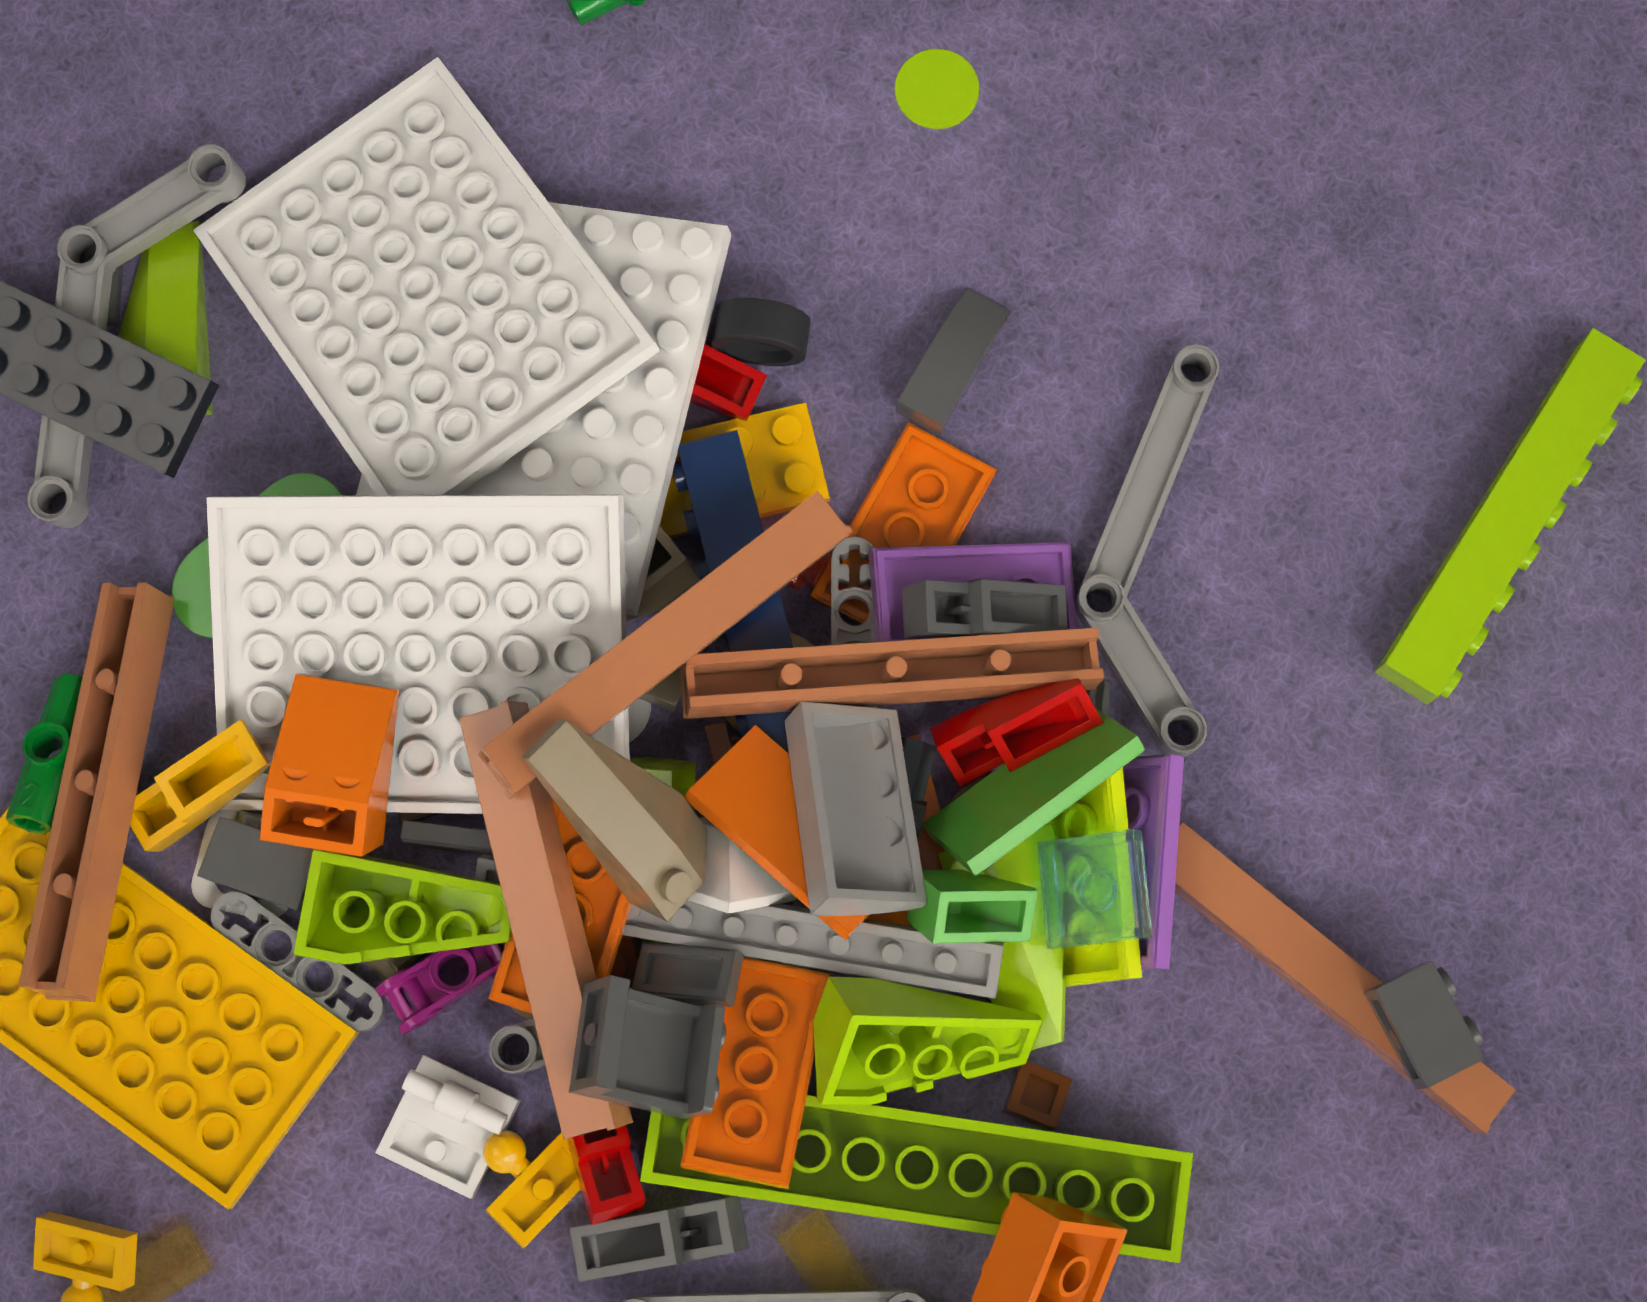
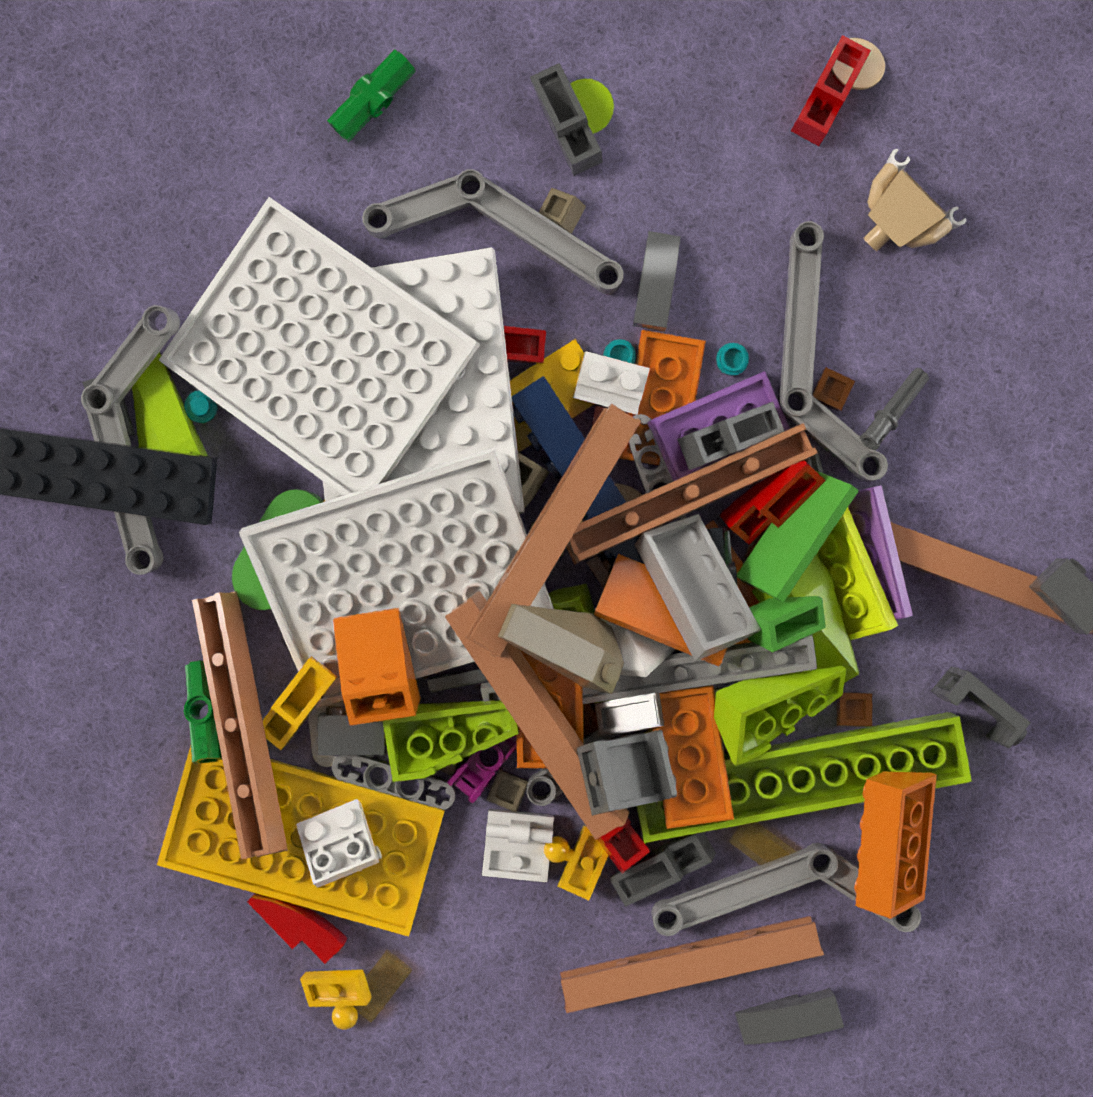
camera: 15 degrees left, 10 degrees up
(68, 1130) = (299, 924): none -> red slope
(174, 1021) = (337, 843): none -> white plate
(227, 317) = (200, 407): none -> teal plate
(463, 1037) = (507, 790): none -> dark tan tile
(761, 331) = (534, 306): black tyre -> none
(767, 188) = (502, 209): none -> light grey piece
(840, 472) = (611, 382): none -> white plate
(851, 218) = (562, 209): none -> dark tan slope
(862, 449) = (620, 350): none -> teal plate
(902, 95) = (567, 119): none -> dark grey slope
(1027, 509) = (732, 359): none -> teal plate
(1094, 889) = (854, 584): clear light blue tile -> none
(1162, 601) = (832, 389): none -> reddish brown plate
(1229, 668) = (888, 418): none -> dark grey axle
(1246, 1147) = (958, 683): none -> dark grey panel
(1295, 180) = (829, 93): none -> red slope
(1348, 156) = (870, 73): none -> tan piece
(1351, 380) = (905, 210): none -> tan torso
(1510, 517) = (1029, 261): lime brick -> none

